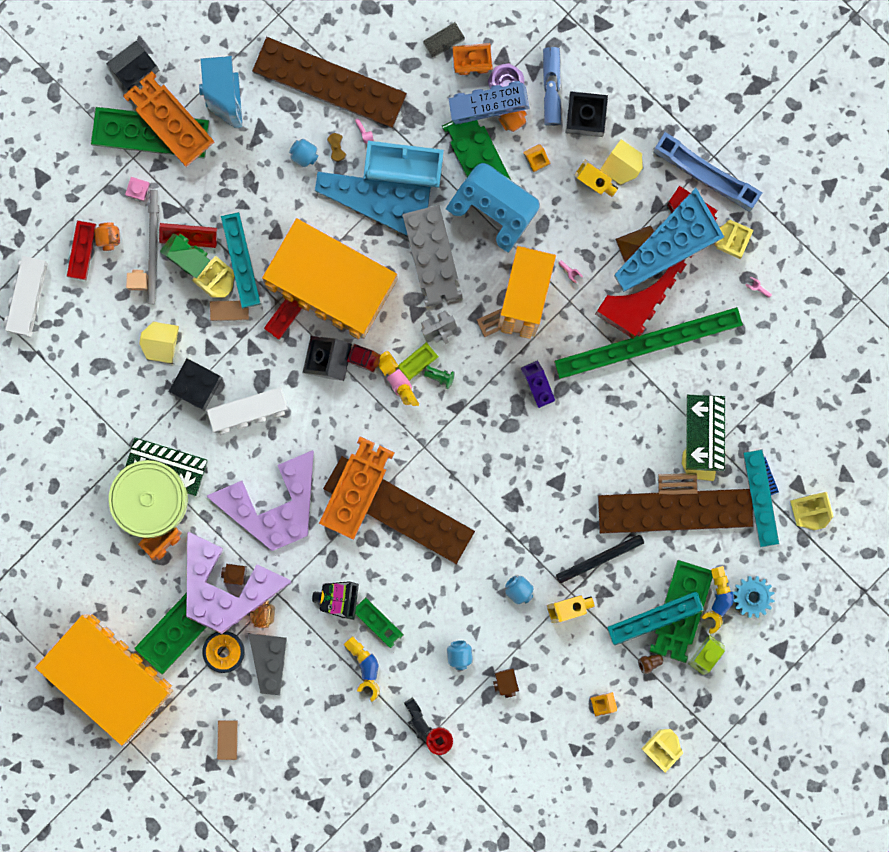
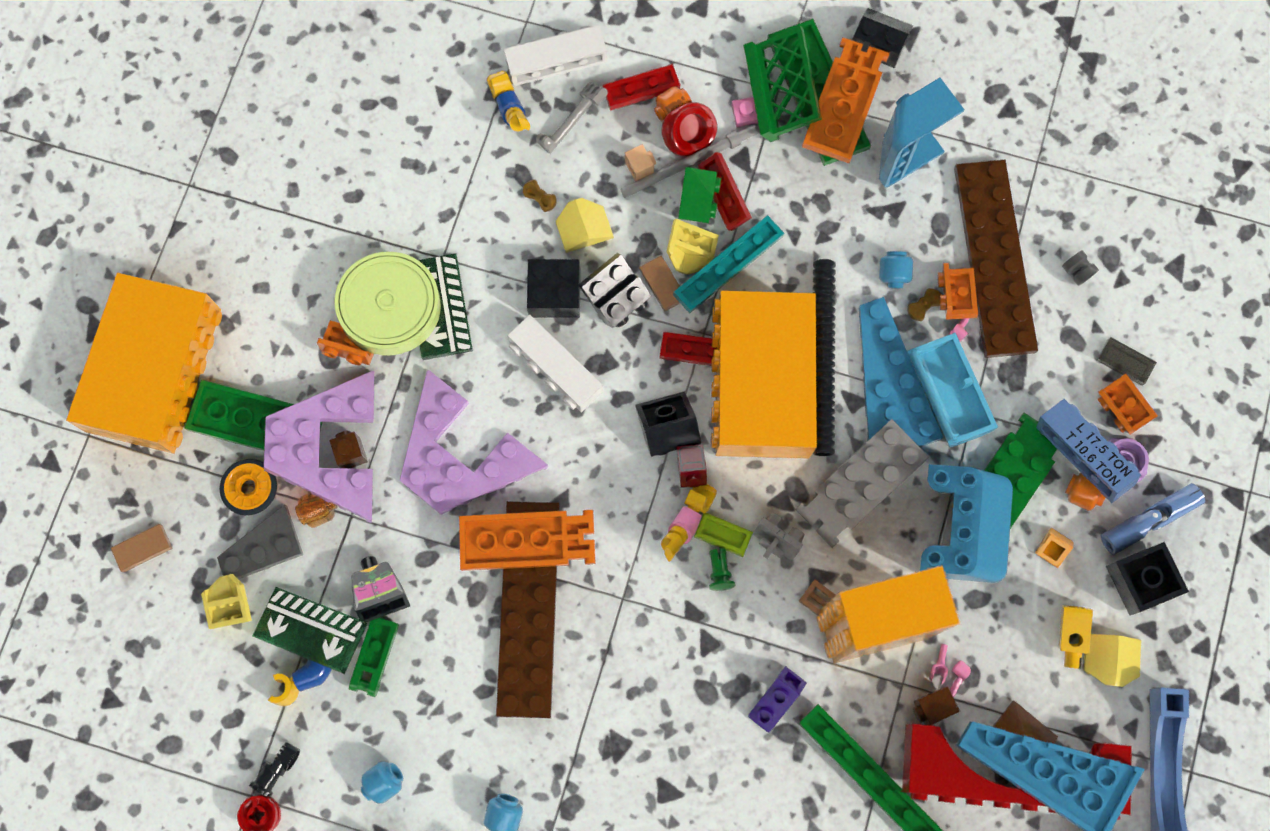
camera: 65 degrees right, 10 degrees down
(44, 347) = (508, 102): none -> yellow piece
(69, 287) = (591, 94): none -> light grey hinge
(129, 358) = (546, 201): none -> pearl gold piece
(130, 170) = (764, 94): none -> green fence
(131, 234) = (689, 129): none -> red piece
(220, 345) = (615, 291): none -> plate
(294, 699) = (226, 602): none -> light yellow slope
(336, 232) = (824, 292): none -> black piece
(340, 654) = (310, 630): none -> clear green tile
(341, 121) = (959, 292): none -> orange bracket
(367, 32) = (1077, 262): none -> dark grey wheel
(581, 260) = (962, 671): none -> bright pink hand
(594, 290) = (935, 706): none -> reddish brown brick

